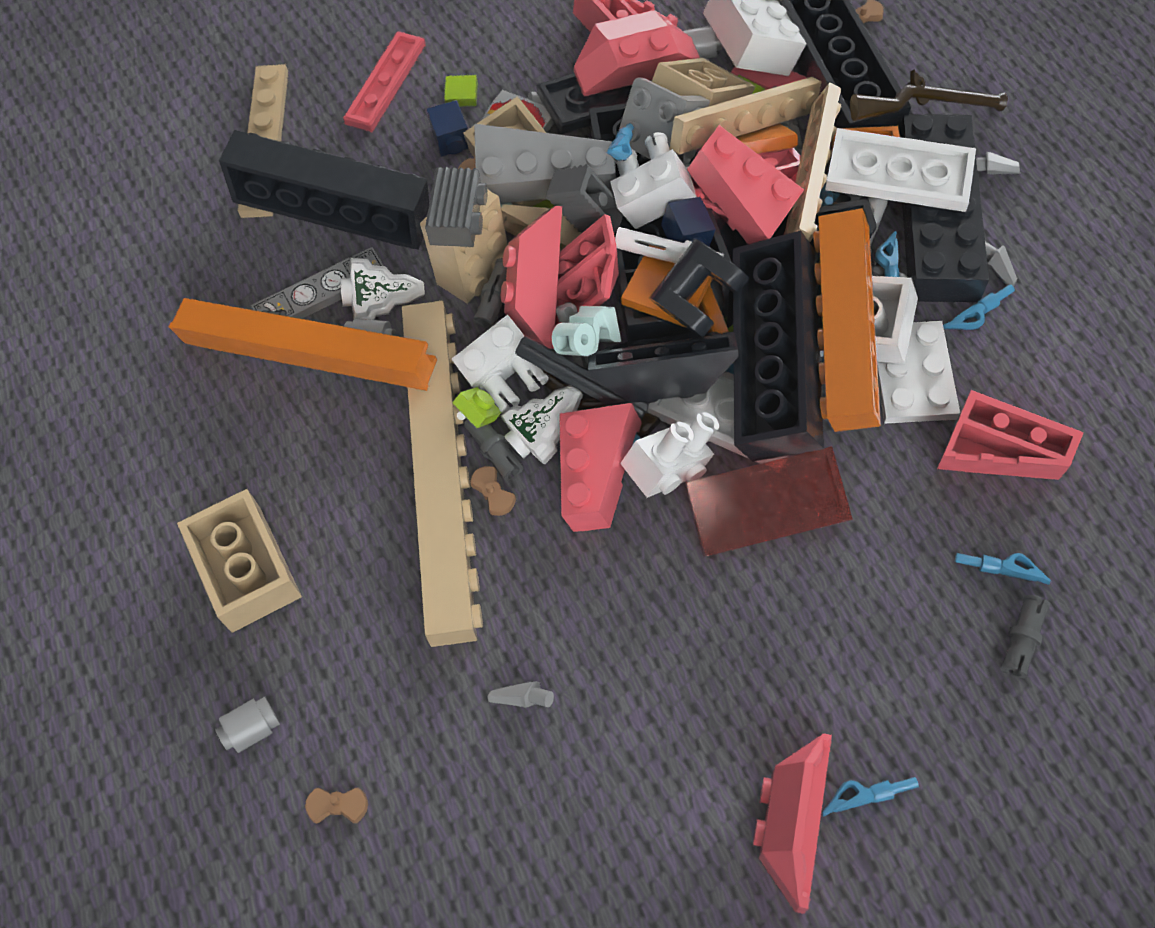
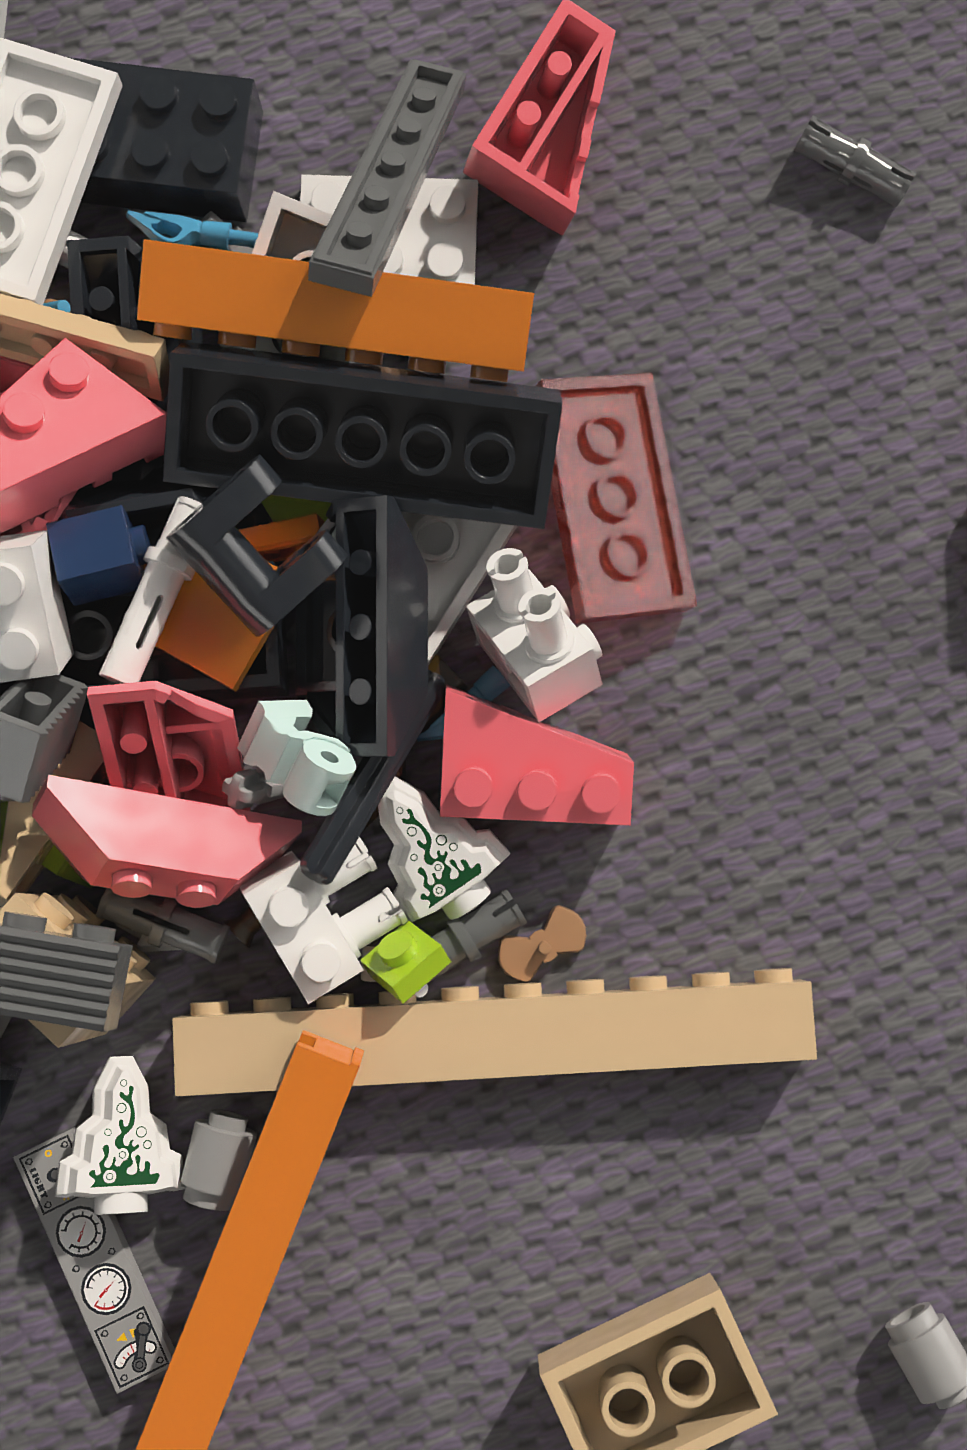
camera: 90 degrees left, 20 degrees up
(522, 695) = (900, 910): light grey bar -> none
(940, 344) = (387, 179): none -> dark grey tile
(977, 311) = (283, 116): dark azure hand -> none
(1001, 264) = (204, 58): light grey bar -> none
(1005, 567) = (739, 166): dark azure hand -> none

